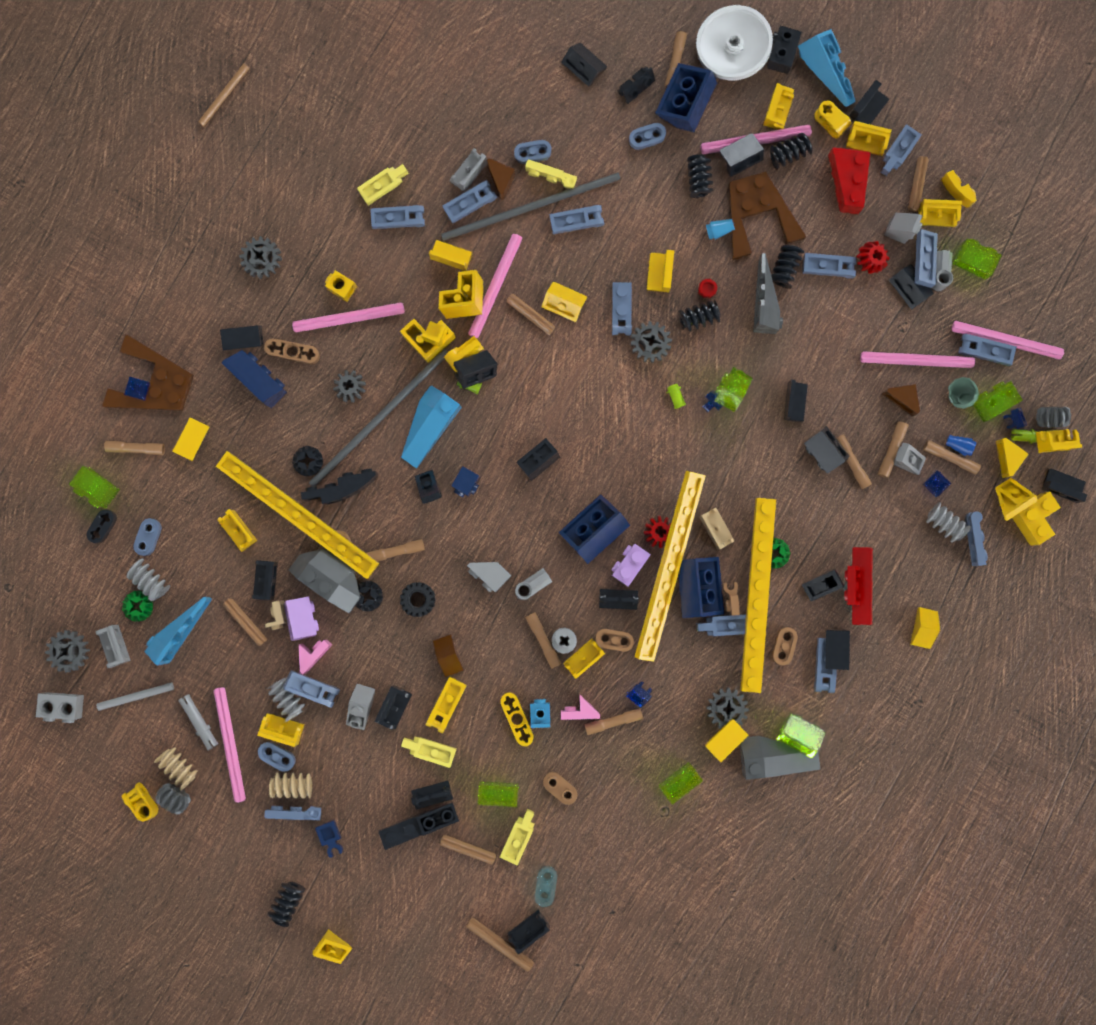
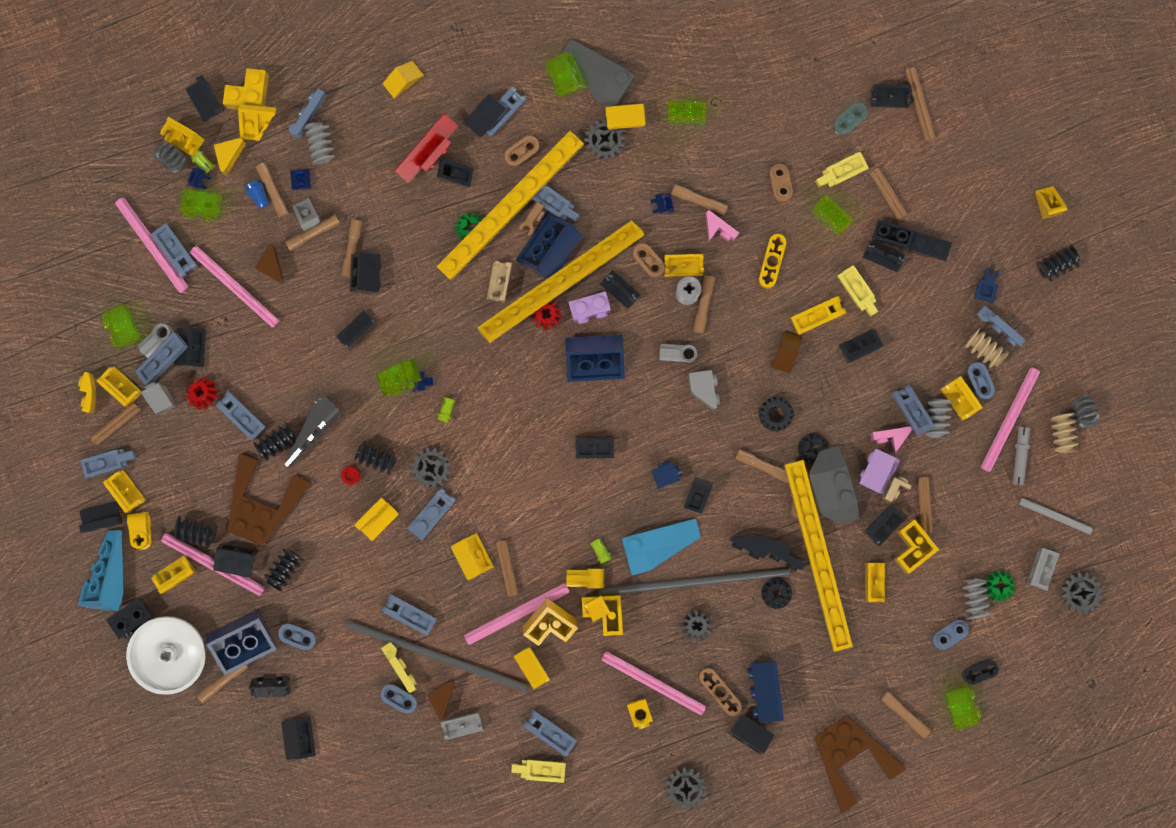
camera: 145 degrees left, 0 degrees up
(59, 702) = (1117, 558): light grey brick -> none
(137, 388) = (867, 759): clear blue tile -> none
(138, 802) = (1113, 431): yellow piece -> none
(168, 641) = (997, 537): dark azure wedge -> none
(191, 439) = (855, 684): yellow hinge -> none
(222, 582) = (919, 547): none -> yellow brick
(360, 706) = (886, 366): light grey slope -> none
(469, 202) = (482, 698): sand blue plate -> none
(475, 369) = (586, 557): black hinge -> none
(540, 722) = (757, 244): dark azure brick -> none
(719, 228) = (302, 514): dark azure cone -> none
(850, 178) = (165, 471): red wedge -> none
(963, 392) = (222, 231): sand green hair -> none

